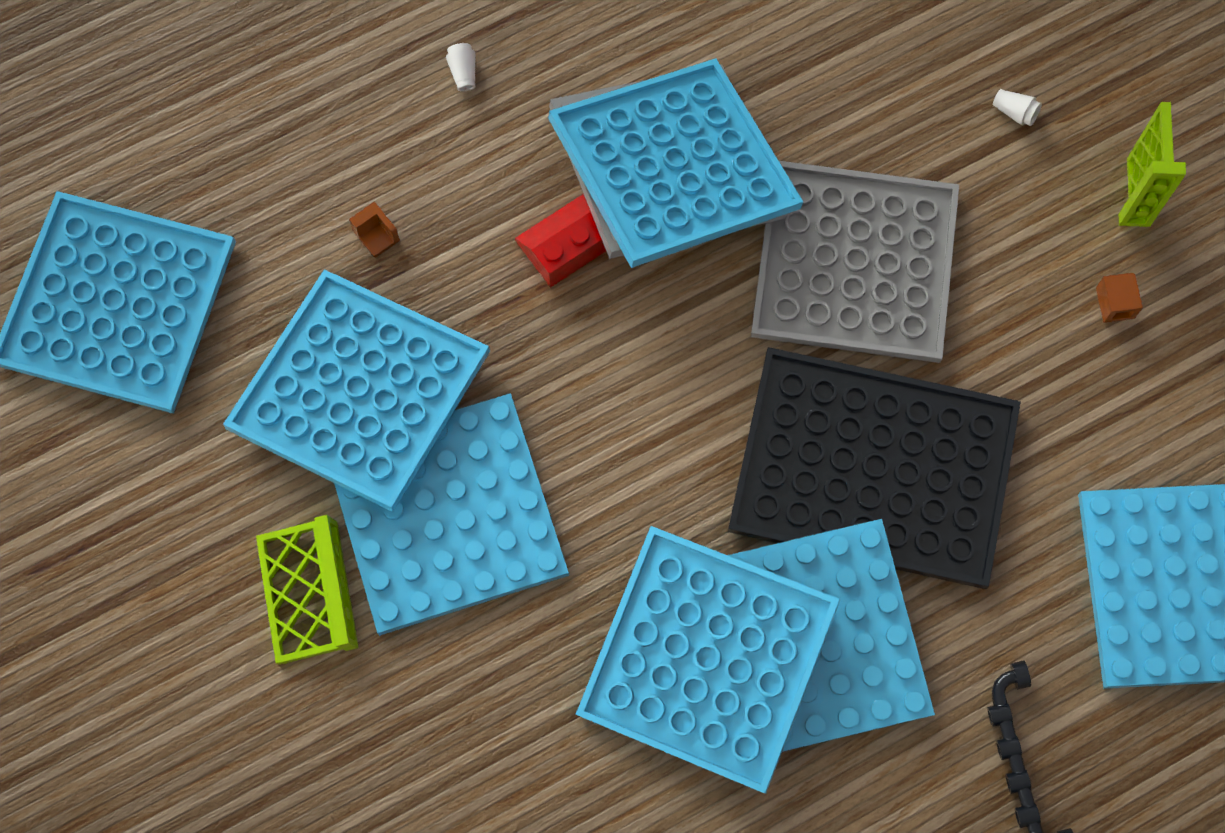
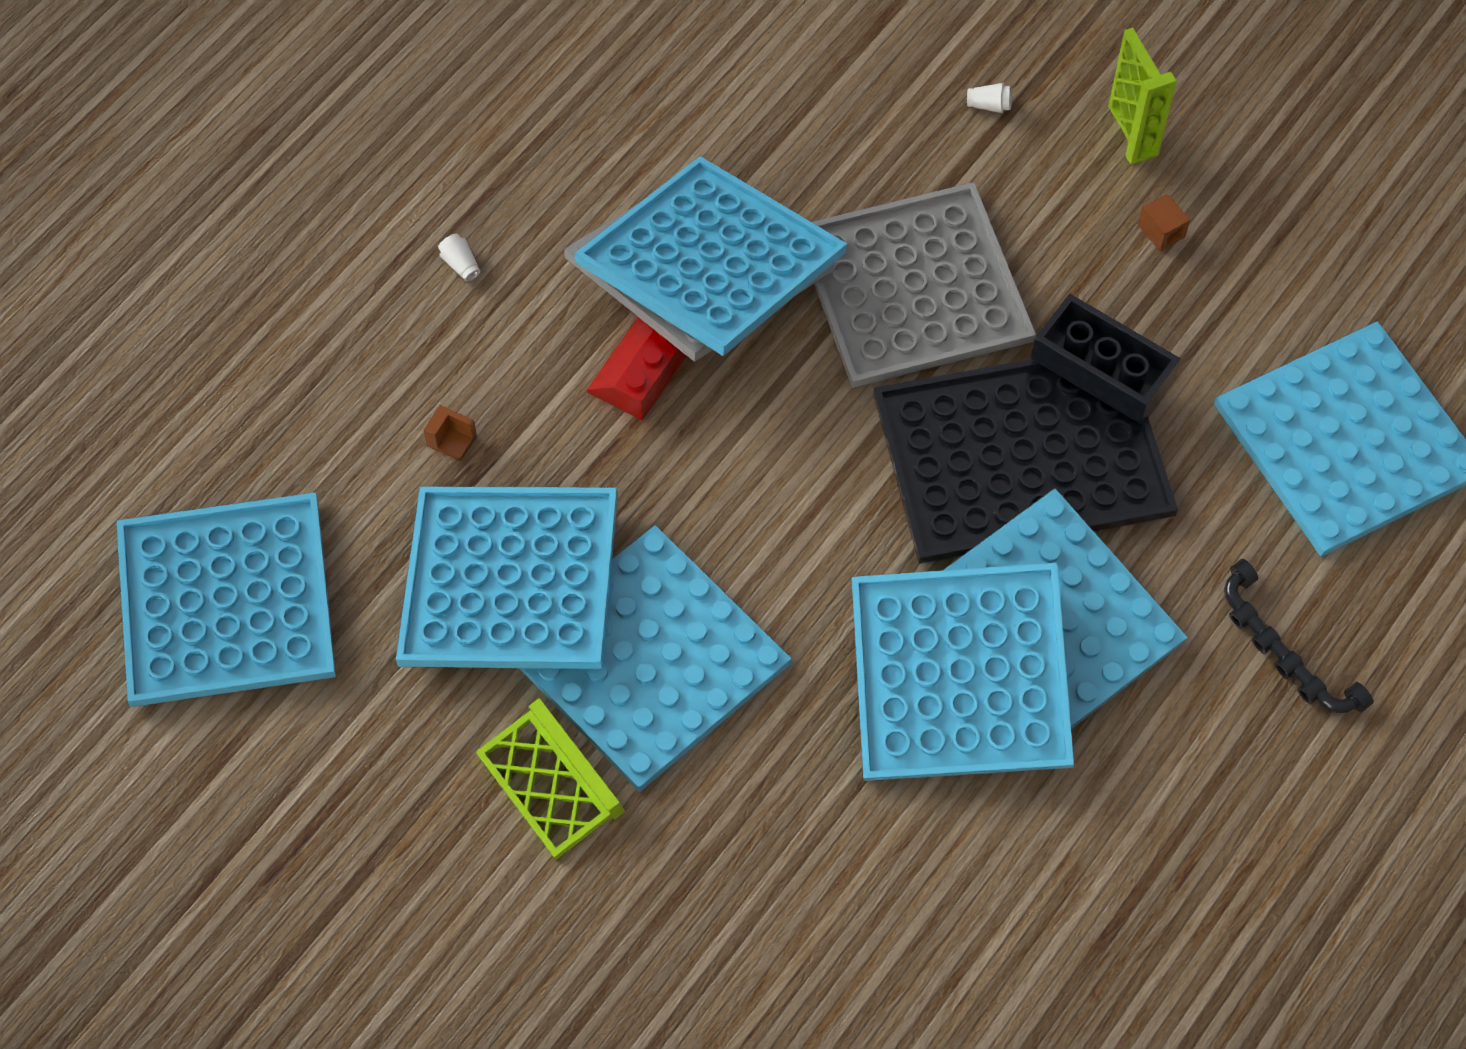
camera: 25 degrees left, 10 degrees down
(990, 413) = (1105, 358): none -> black brick

